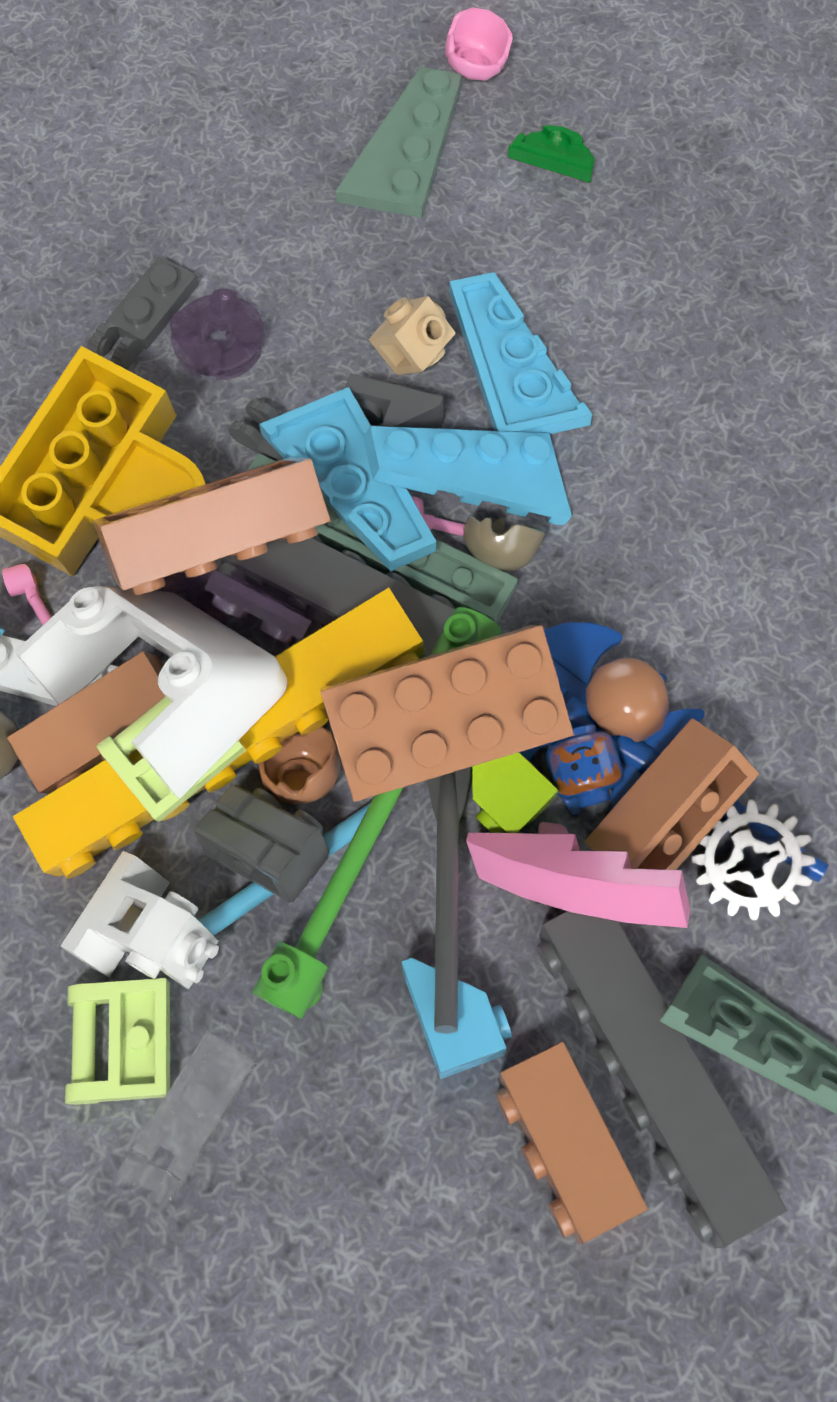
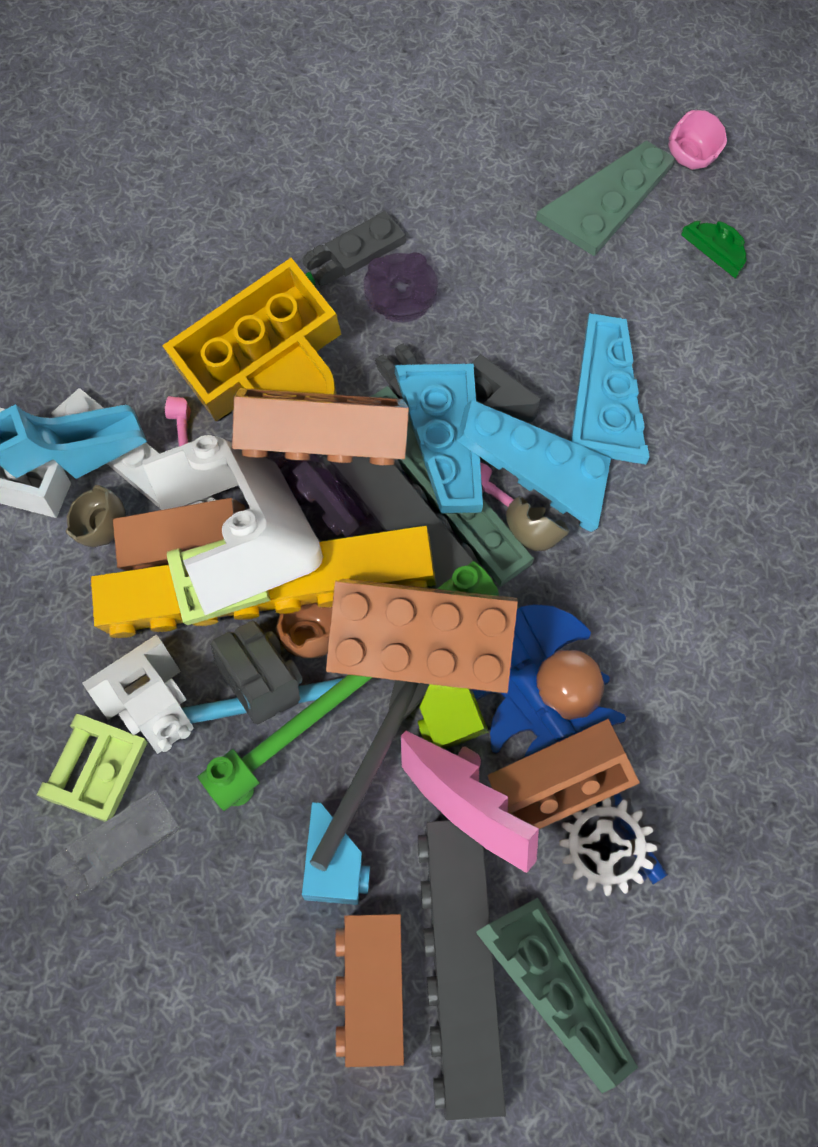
camera: 20 degrees right, 0 degrees up
(412, 335) = (542, 343): tan brick -> none
(585, 766) = (515, 719): blue head -> none

